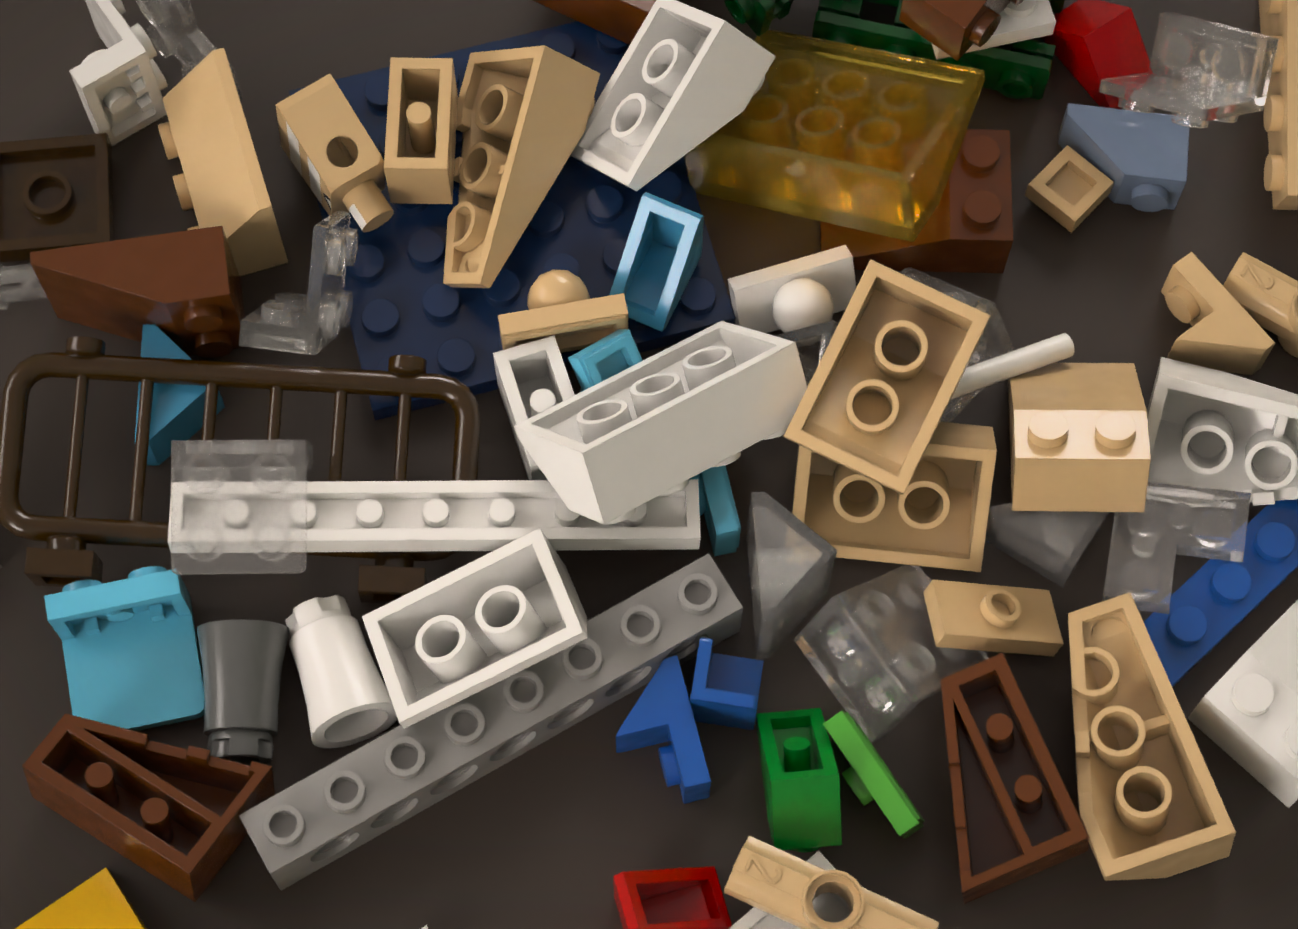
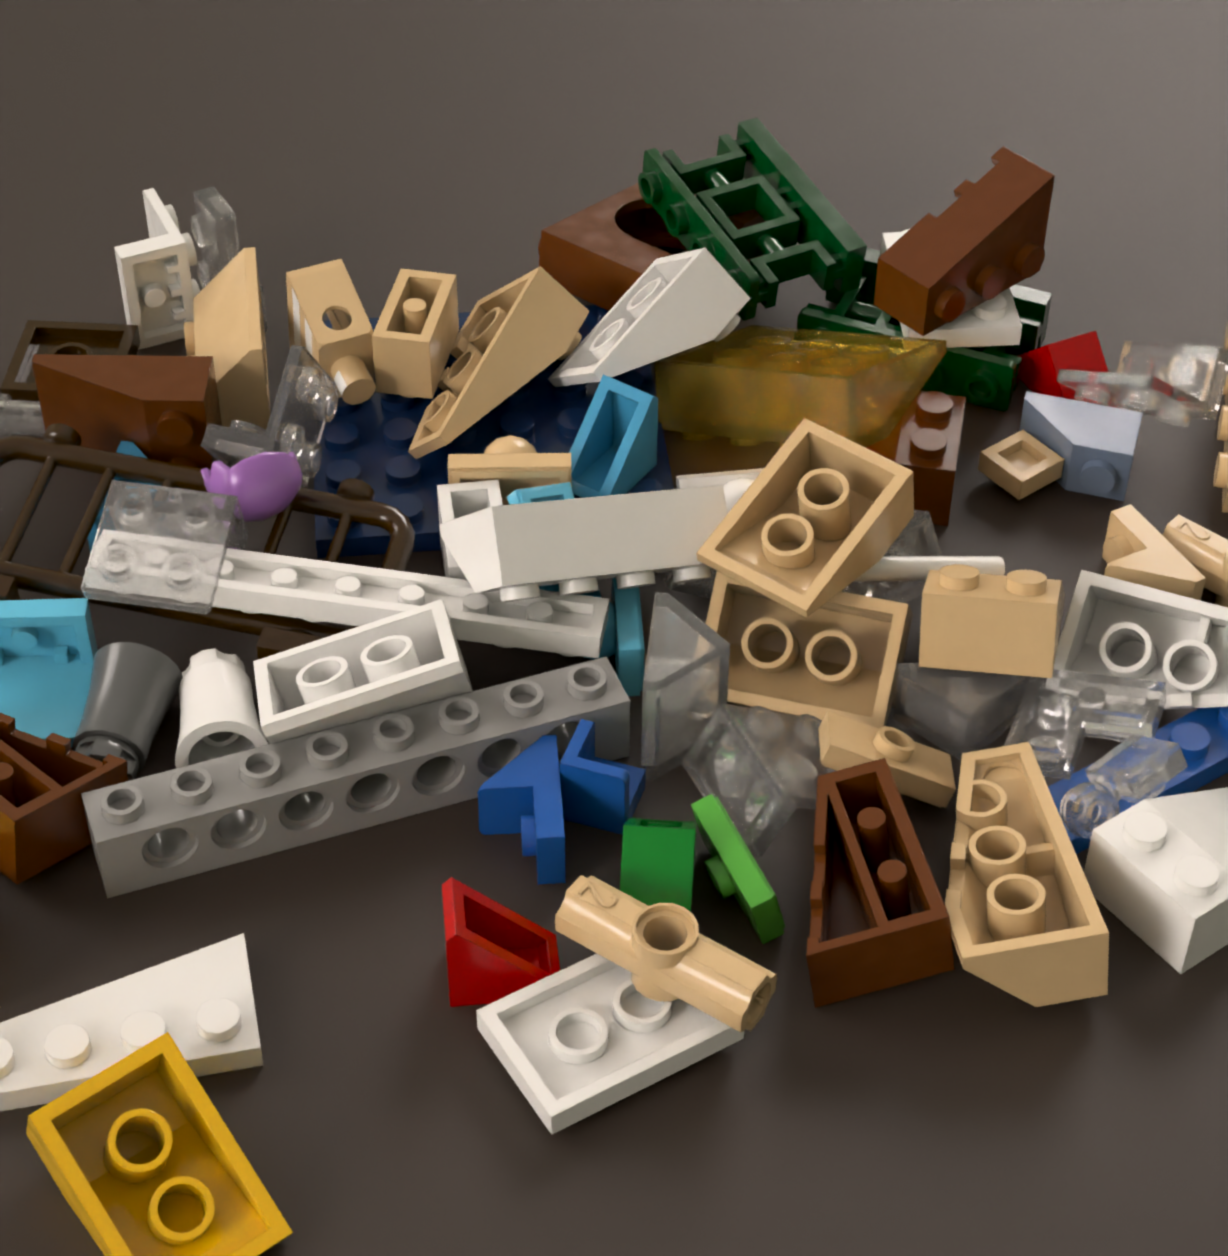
camera: 10 degrees right, 25 degrees down
(308, 396) = (261, 482): none -> medium lavender hair
(1227, 612) = (1128, 772): none -> clear plate

